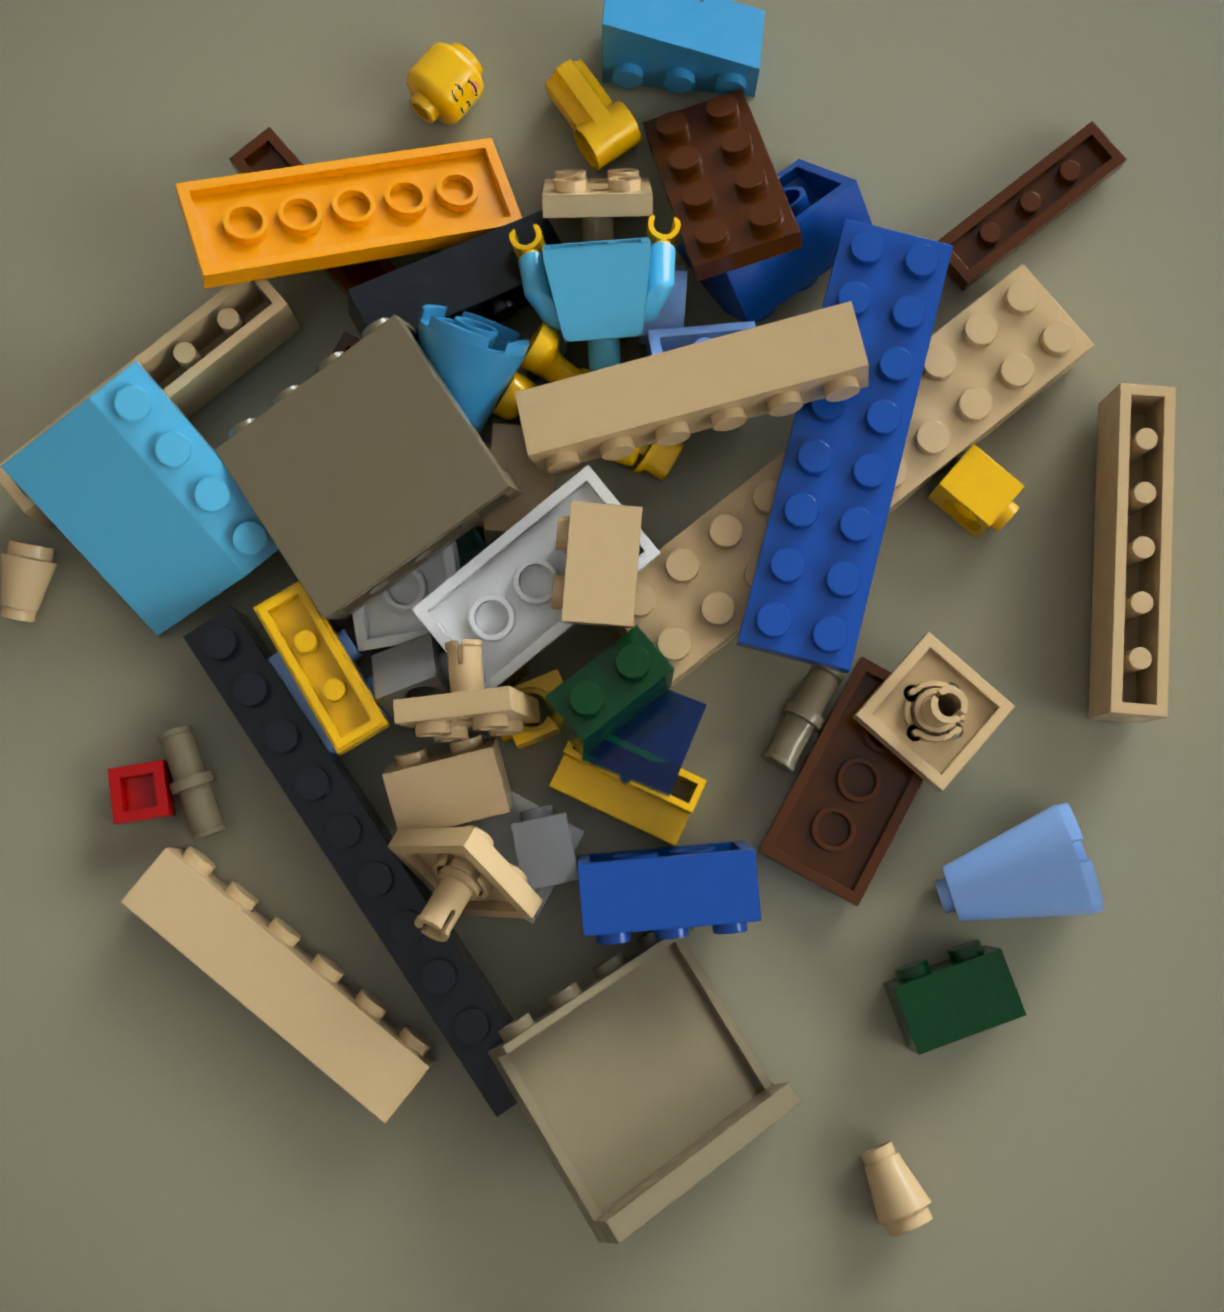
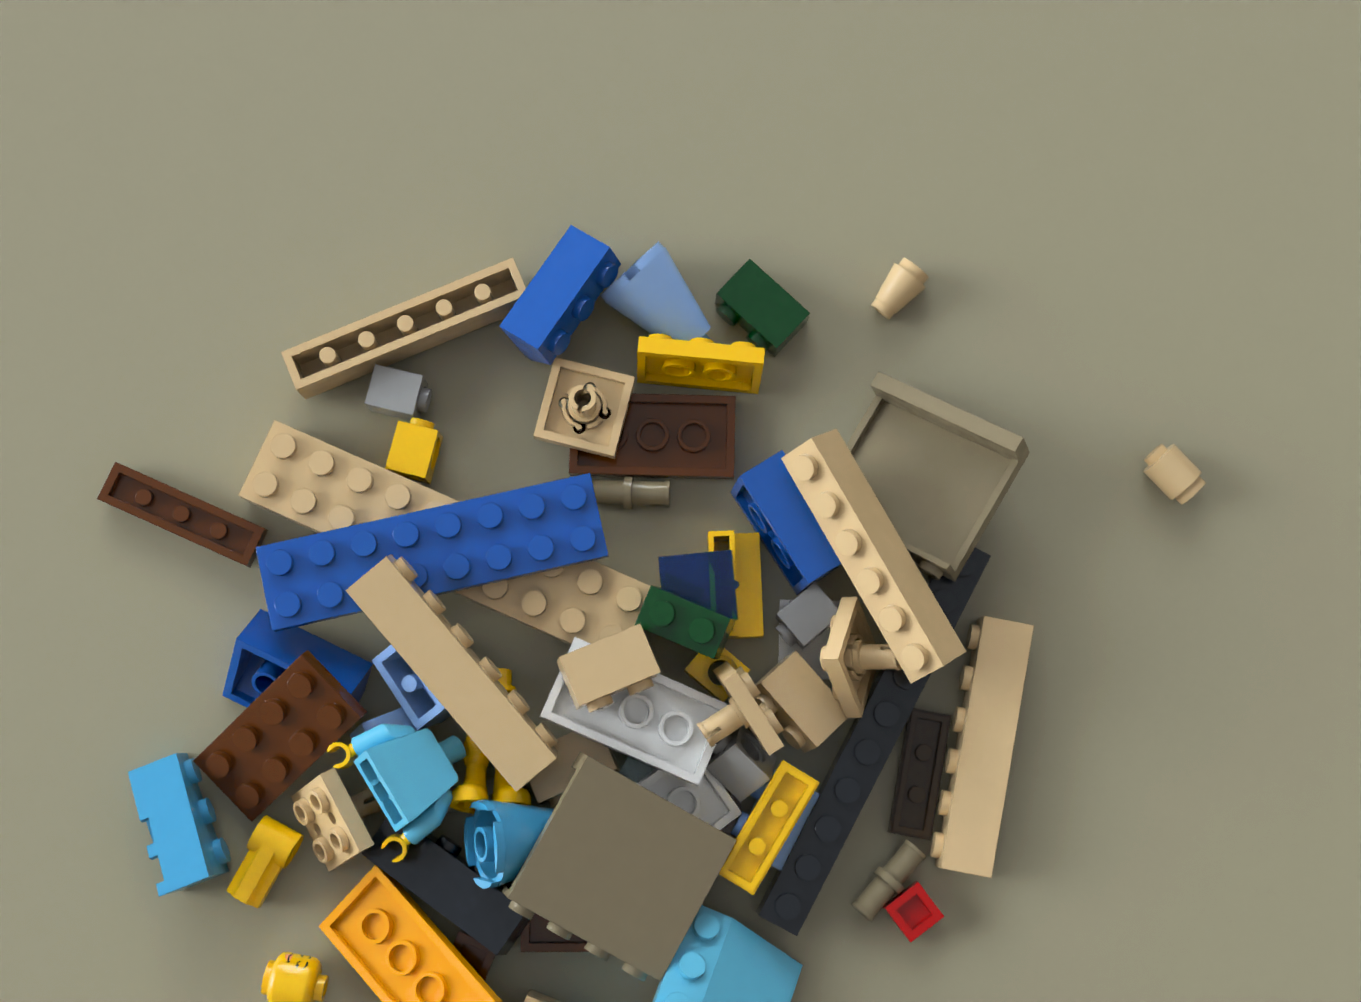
camera: 120 degrees left, 0 degrees up
(292, 886) = (919, 774): none -> dark brown tile
(570, 963) = (873, 555): none -> tan brick
(921, 880) = (699, 364): none -> yellow plate
(1057, 506) = (398, 393): none -> light grey brick
(1093, 751) = (560, 296): none -> blue slope

